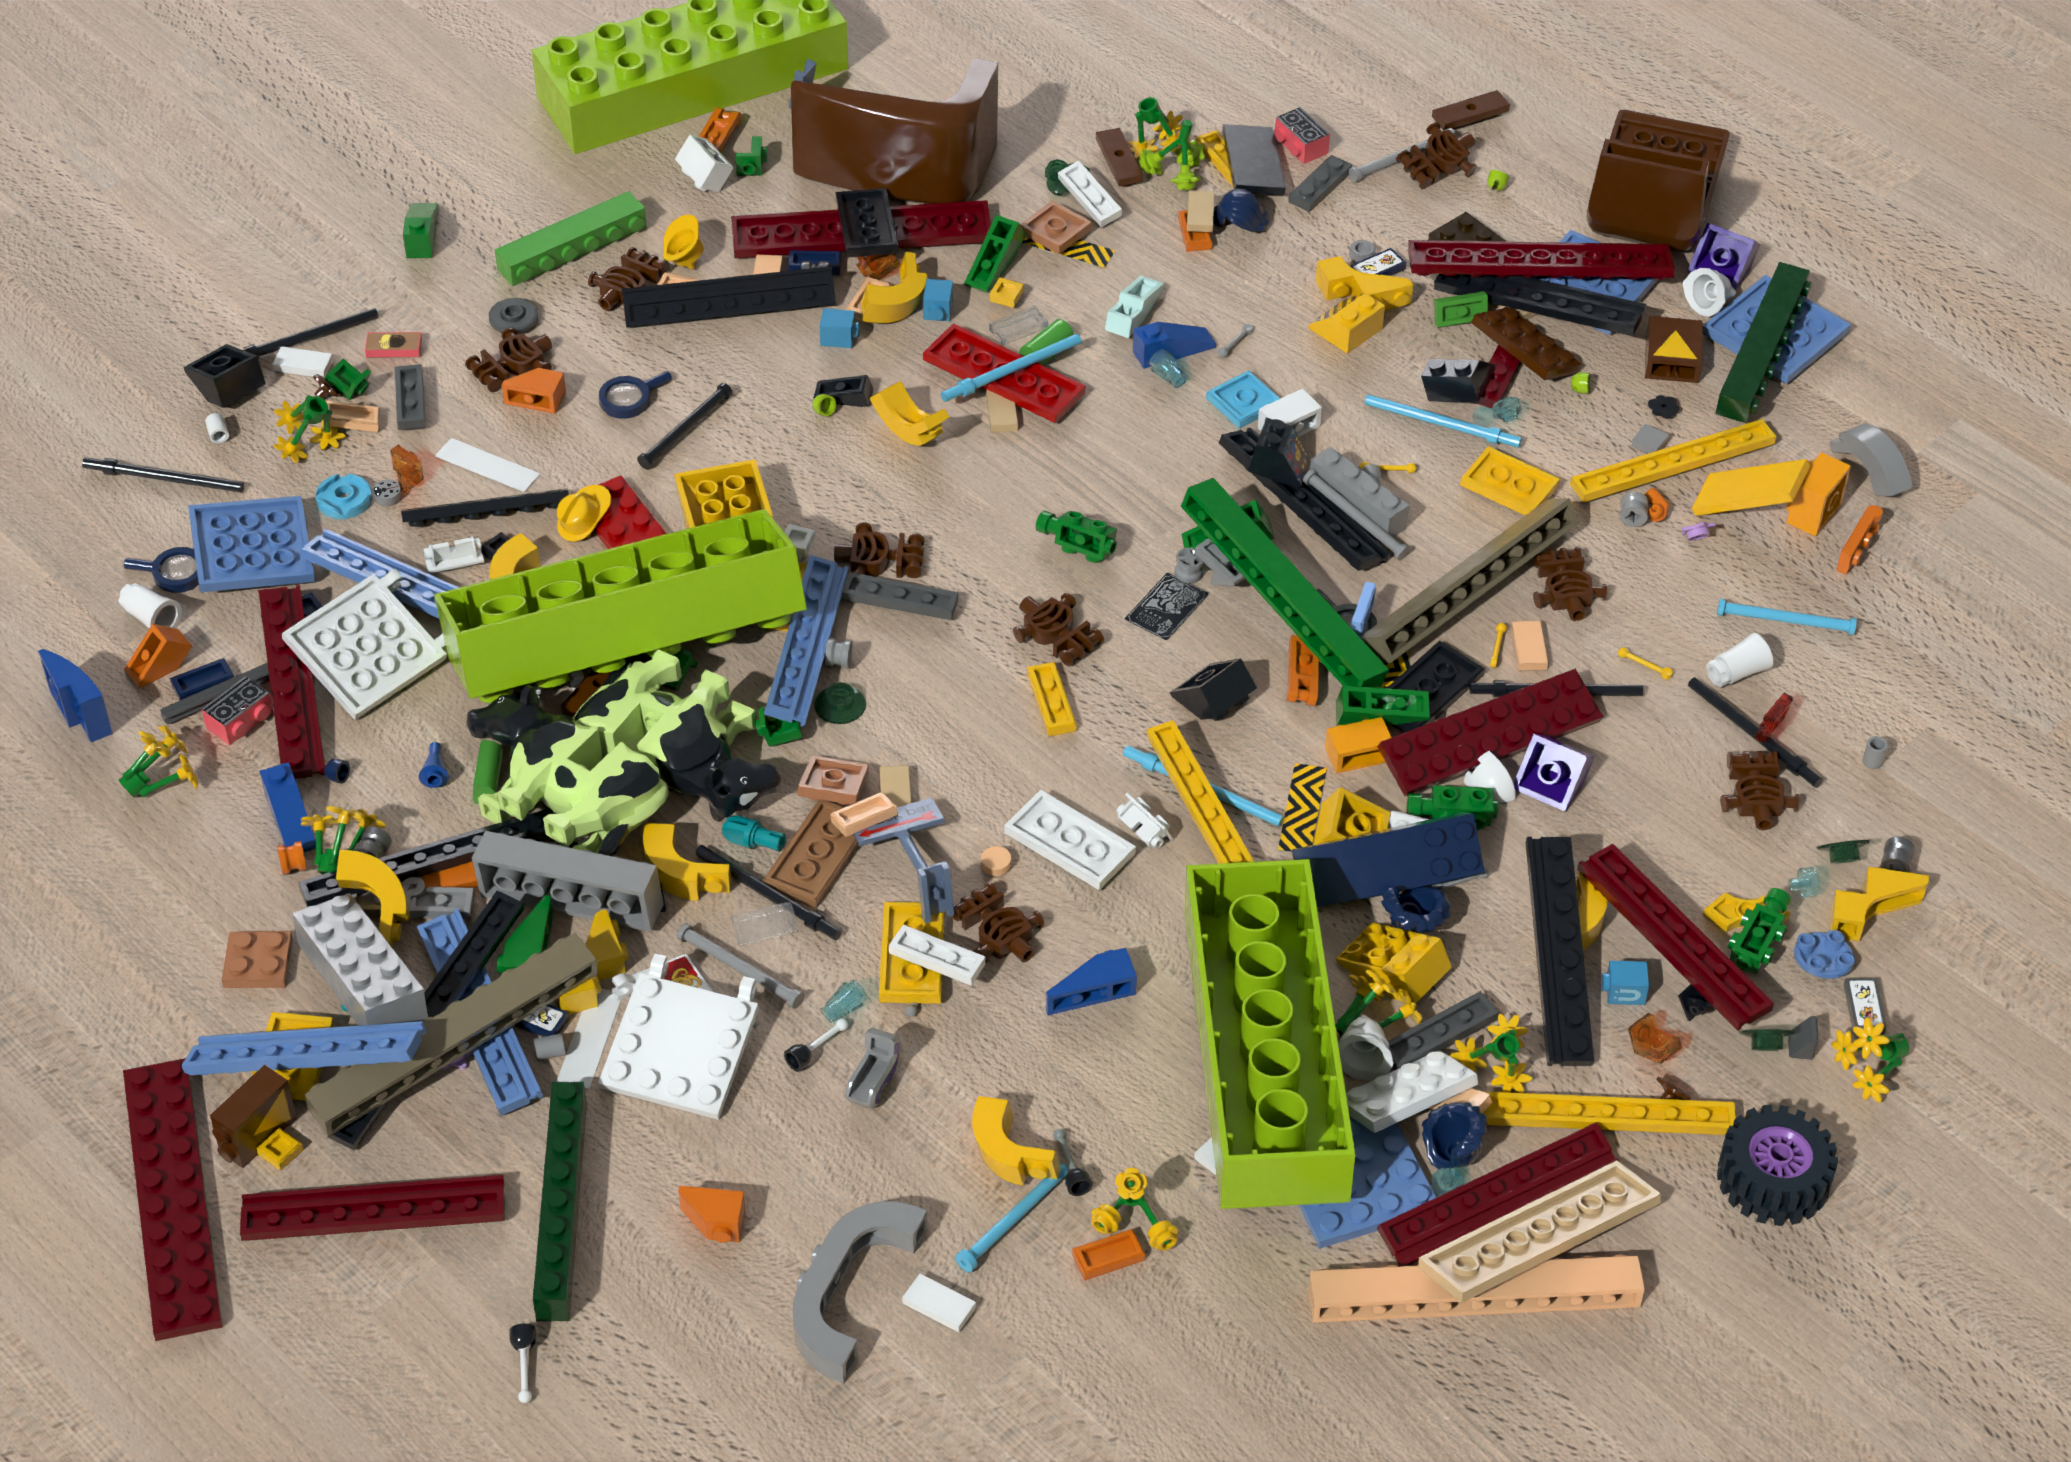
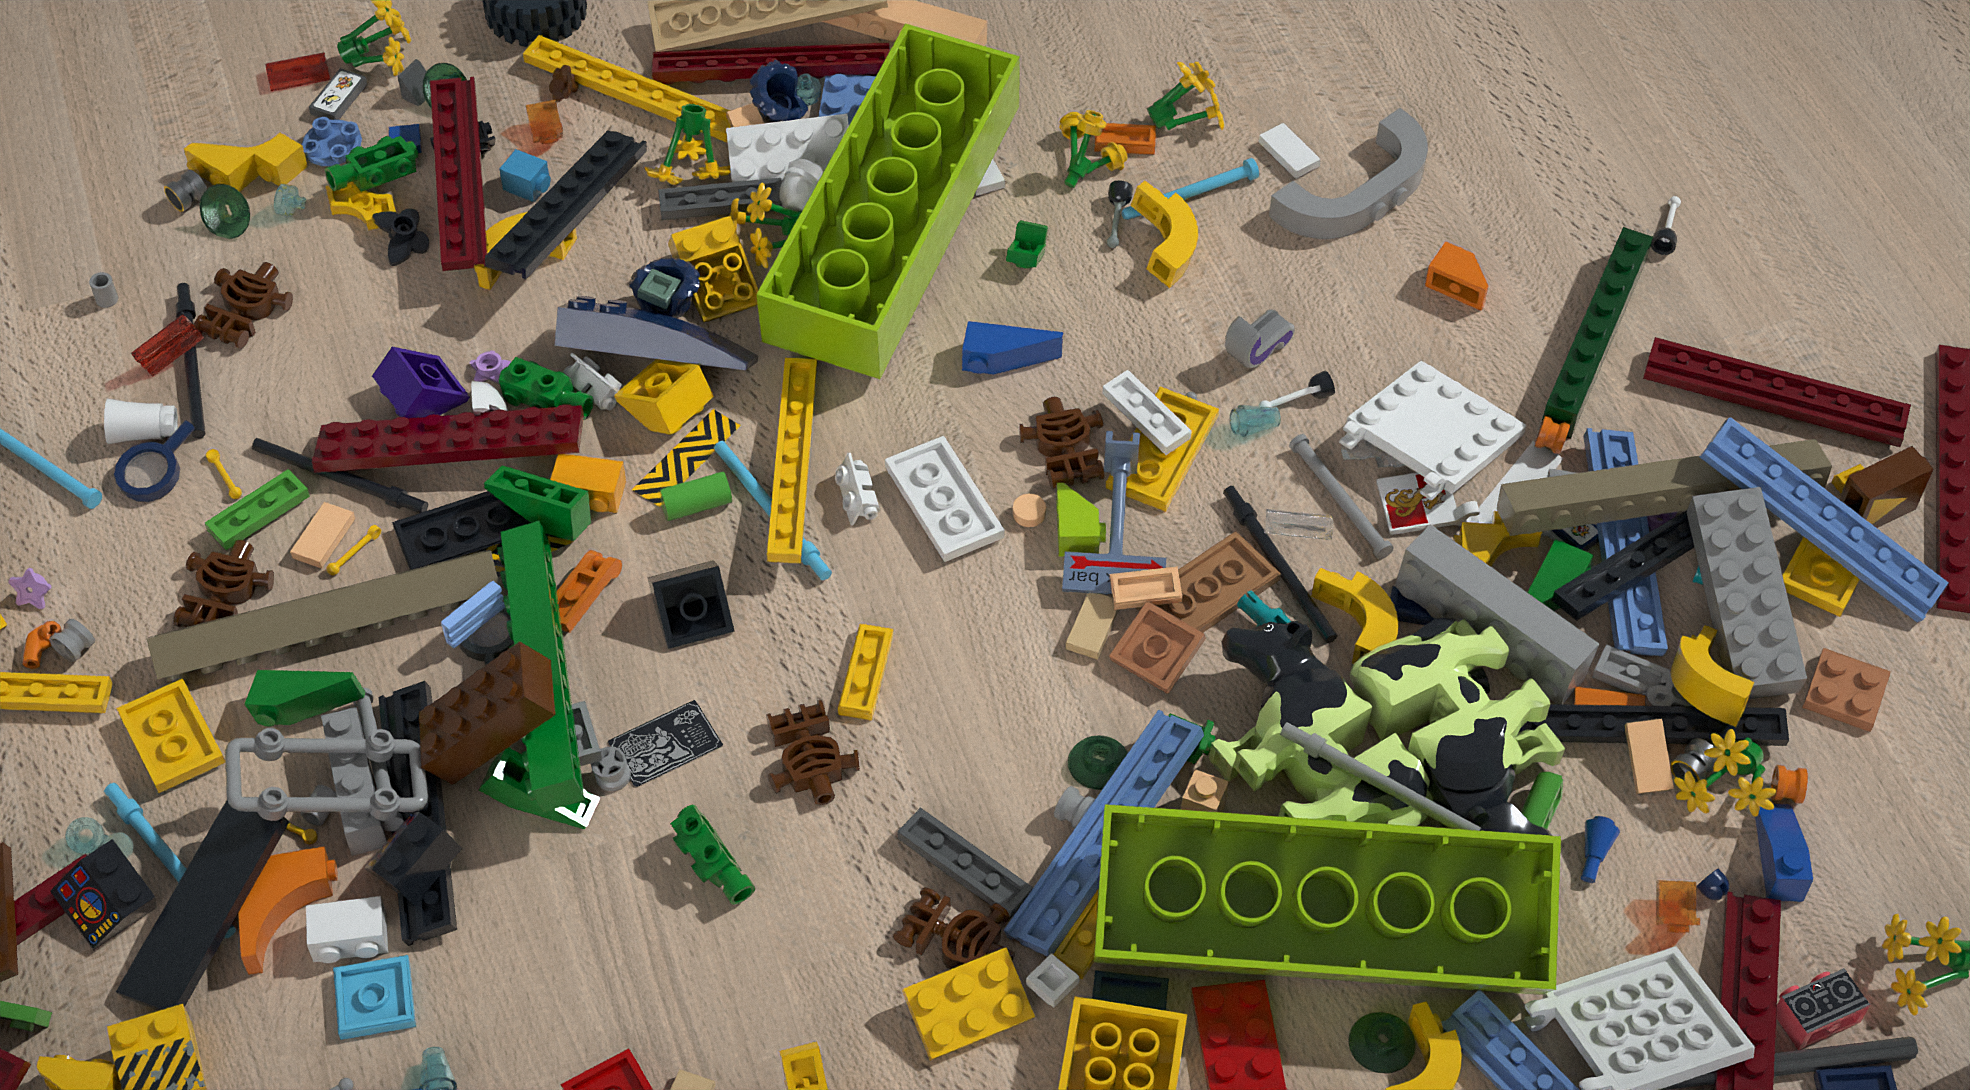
camera: 155 degrees left, 5 degrees up
(360, 738) = (1676, 905): none -> clear orange bracket
(410, 834) = (1649, 756): none -> light nougat tile
(574, 1074) = (1552, 435): none -> orange wheel
(667, 692) = (1316, 746): none -> light grey bar
(745, 685) = (1205, 793): none -> light nougat brick
(849, 512) = (968, 1003): none -> yellow plate
(949, 846) = (1077, 523): none -> lime slope
(1077, 1287) = (1163, 109): none -> plant
(1131, 1085) = (1028, 244): none -> green bracket
(1267, 767) = (695, 496): none -> bright green brick
(1286, 522) = (486, 713): none -> reddish brown brick
(1350, 495) = (274, 803): none -> light grey bar
(1358, 418) = (281, 889): none -> orange arch
(1388, 387) = (201, 909): none -> black tile
(1415, 893) = (658, 288): none -> sand green tile
(1443, 524) = (293, 696): none -> green slope
(1516, 811) = (486, 360): none -> lavender plate
(1592, 639) = (257, 509): none -> bright green plate
(1683, 891) = (402, 234): none -> black animal
(1700, 640) = (151, 467): none -> dark blue piece
(1770, 984) = (408, 133): none -> blue tile
(1910, 1031) = (297, 71): none -> clear red tile

